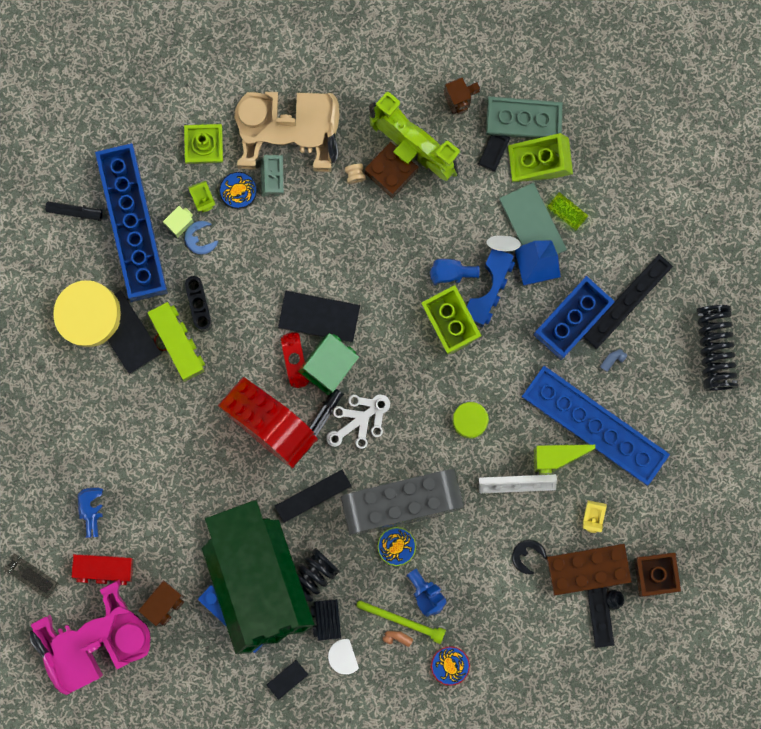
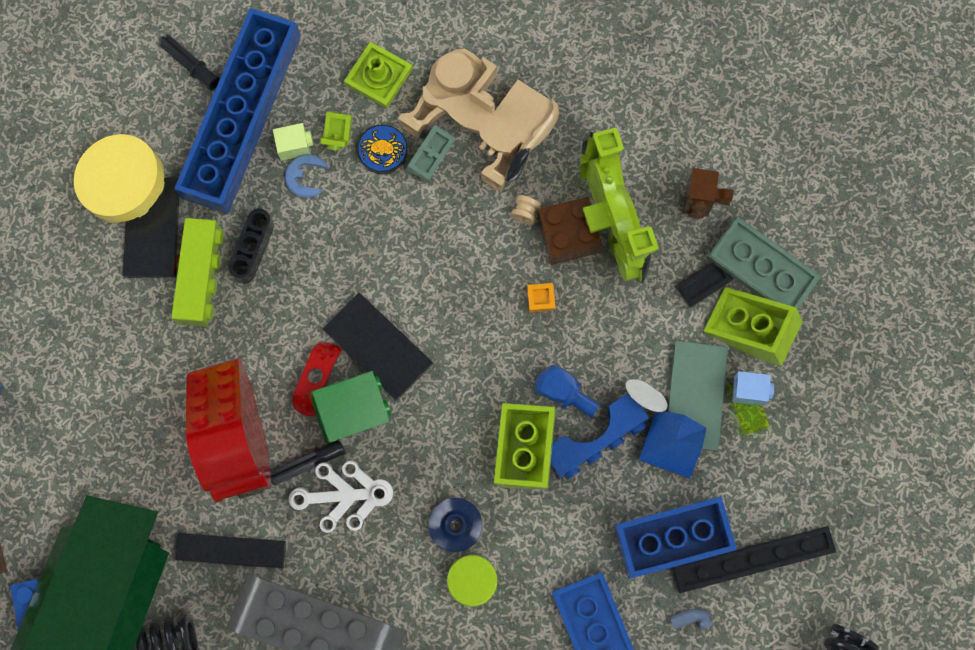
camera: 40 degrees right, 5 degrees down
(400, 223) = (541, 297): none -> light orange plate
(438, 383) = (455, 510): none -> dark blue dish
(564, 199) = (752, 388): none -> light blue brick

